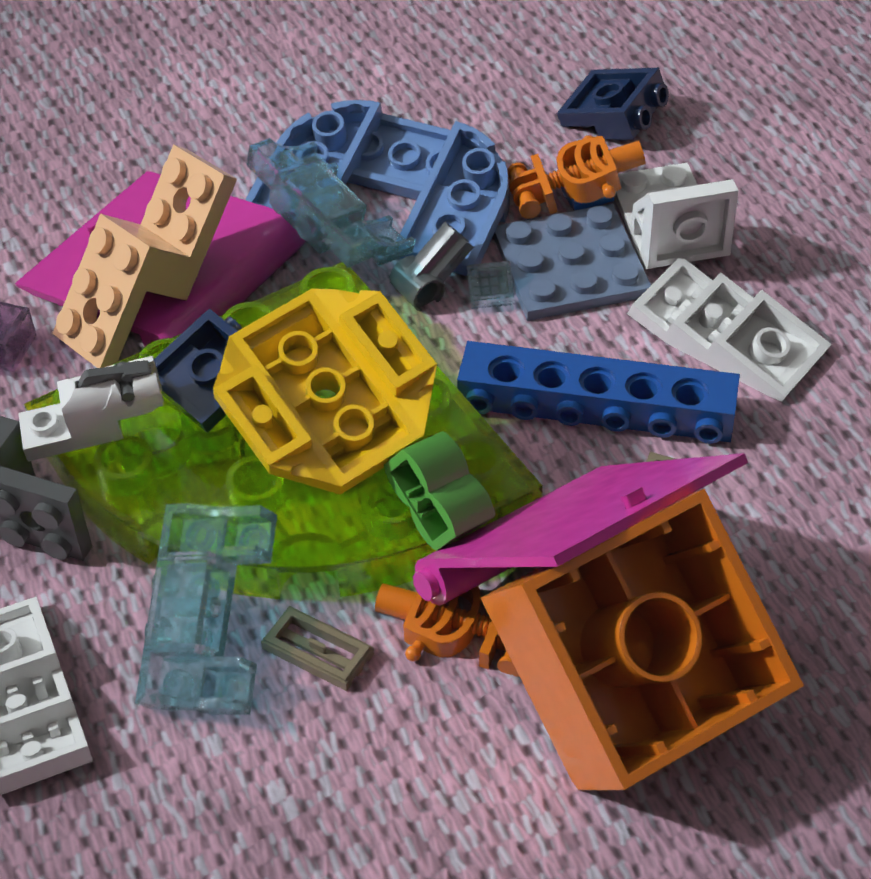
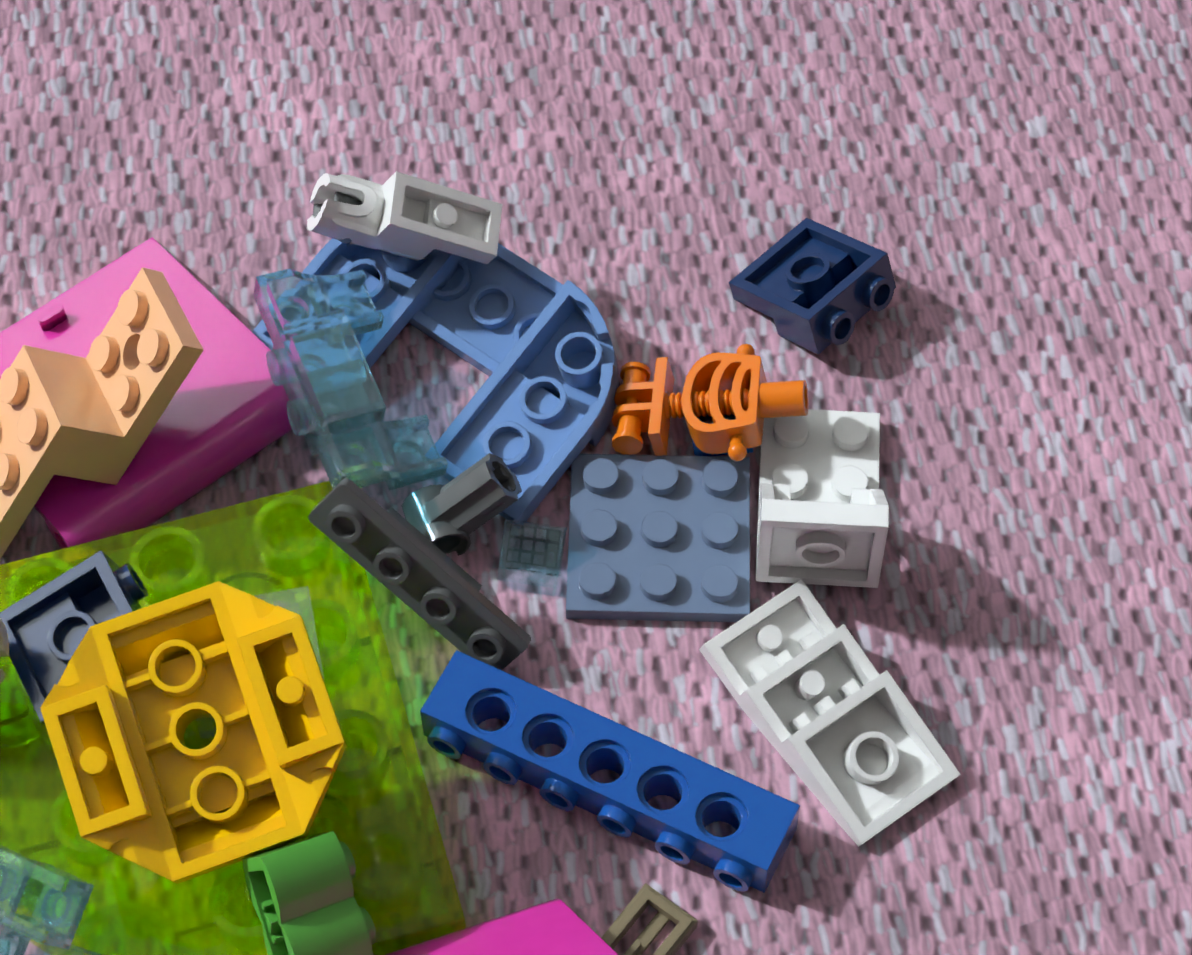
camera: 15 degrees right, 10 degrees up
(333, 100) = (405, 216): none -> white plate
(422, 297) = (419, 574): none -> dark grey bracket

